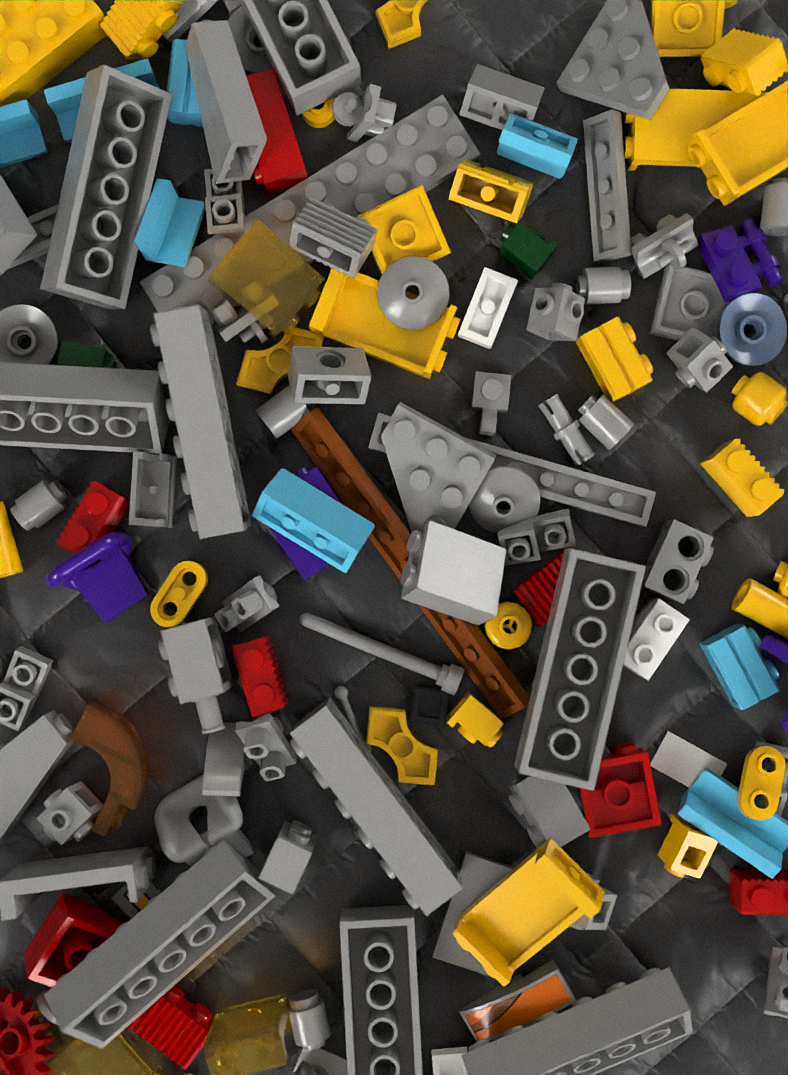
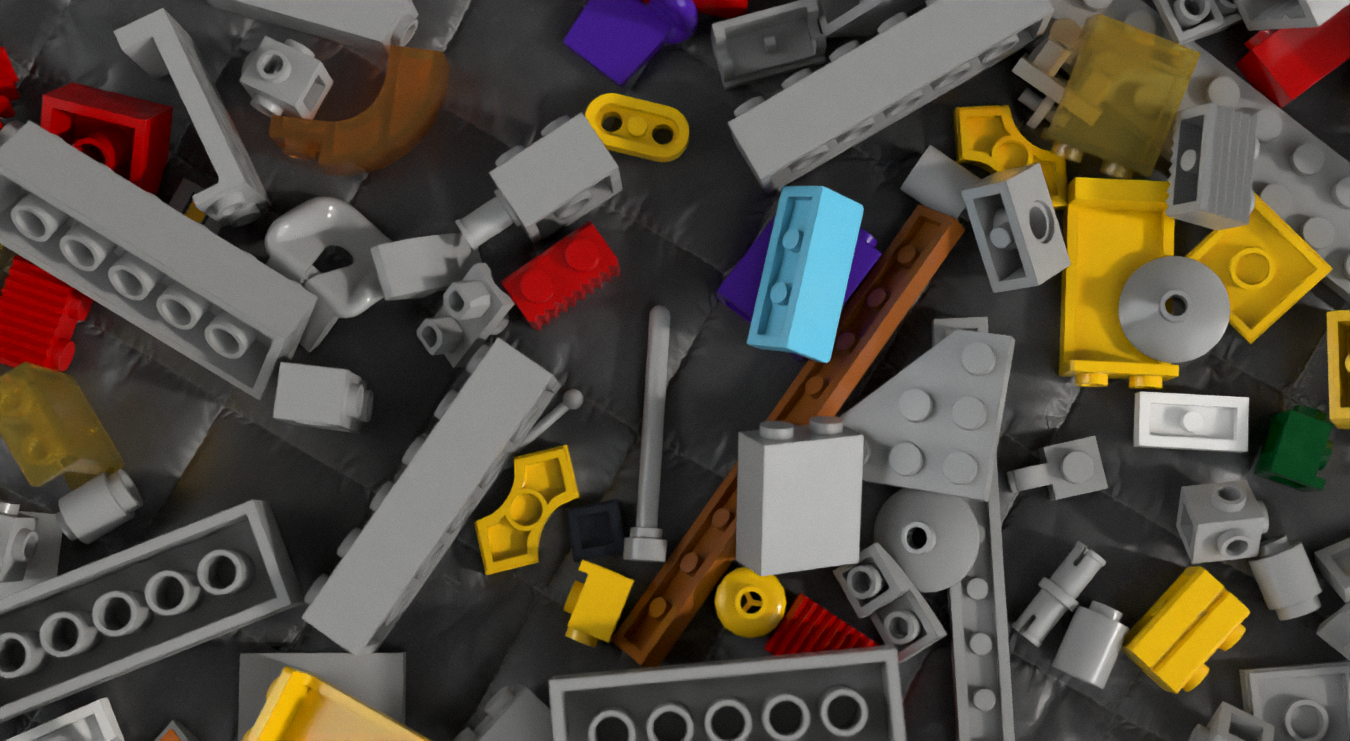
camera: 75 degrees right, 5 degrees down
(247, 605) = (654, 225): light grey hips -> none

